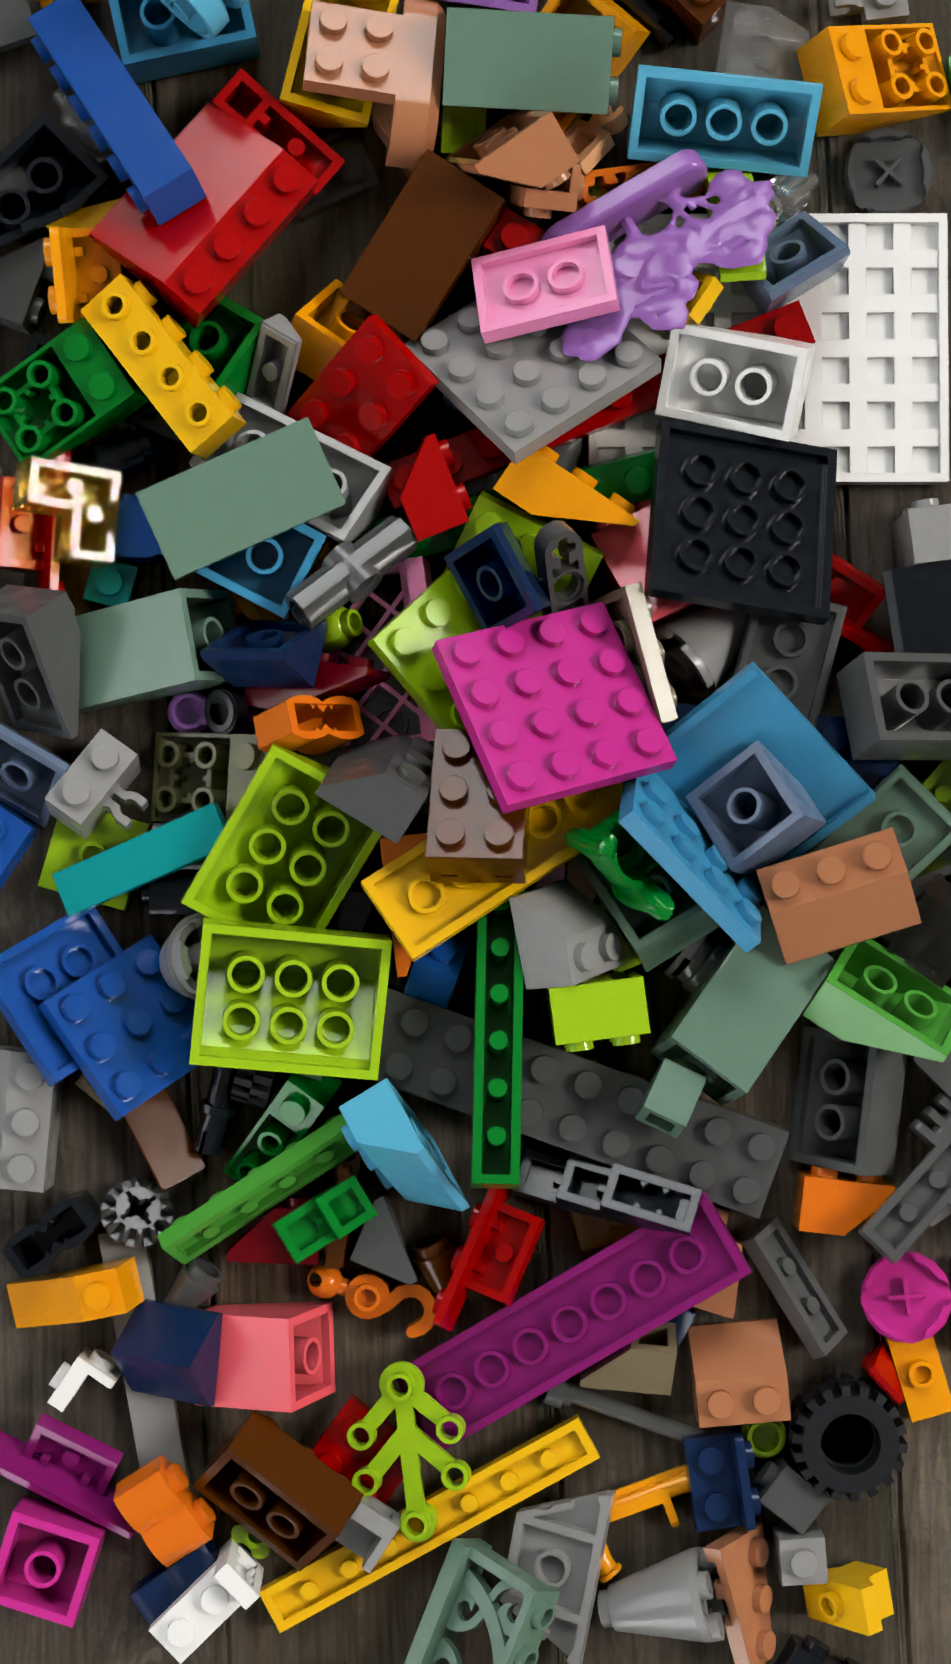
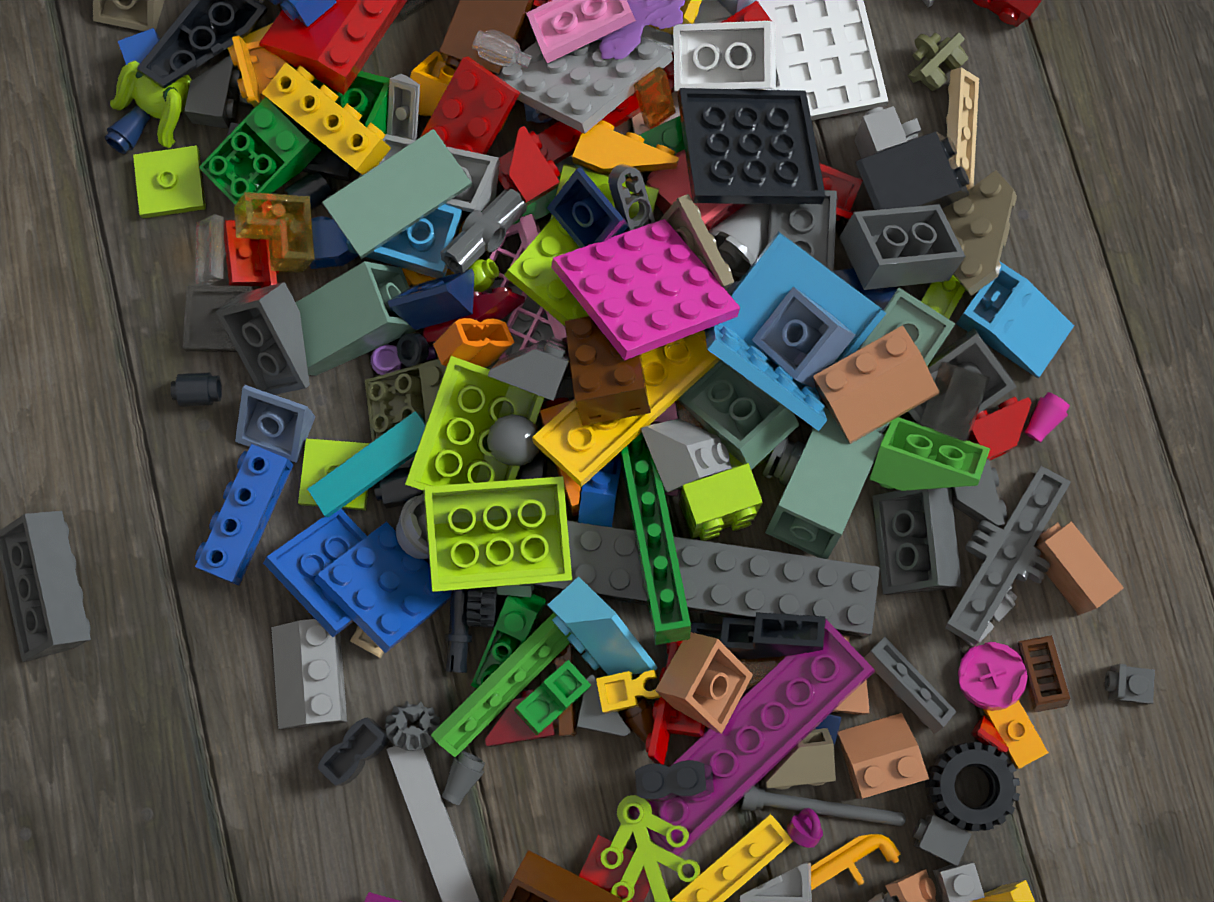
camera: 10 degrees left, 10 degrees down
(70, 1378) = (385, 862): white bracket -> none
(77, 1294) = (377, 795): light orange slope -> none
(95, 785) = (328, 421): light grey brick -> none
(111, 584) = (312, 279): teal plate -> none
(164, 1140) = (423, 668): reddish brown slope -> none
(171, 1351) = (457, 823): dark blue slope -> none
(275, 1355) = (526, 813): coral slope -> none
(335, 872) = (512, 440): none -> dark grey hair
(370, 1295) = (597, 753): orange piece -> none
(415, 1230) = (621, 690): none -> yellow plate
(423, 311) = (500, 49): none -> clear plant
(472, 1363) = (683, 778): none -> black brick
(526, 1241) = (704, 681): none -> nougat slope
(618, 1445) = (805, 828): none -> magenta tile
(623, 864) = (718, 386): green hair -> none
(625, 422) = (654, 98): none -> clear orange plate
(671, 1097) = (787, 553): sand green brick -> none
(720, 1480) = (887, 838): dark blue bracket -> none
(766, 1438) = (911, 801): lime plate -> none
(836, 1202) = (924, 616): orange slope -> none

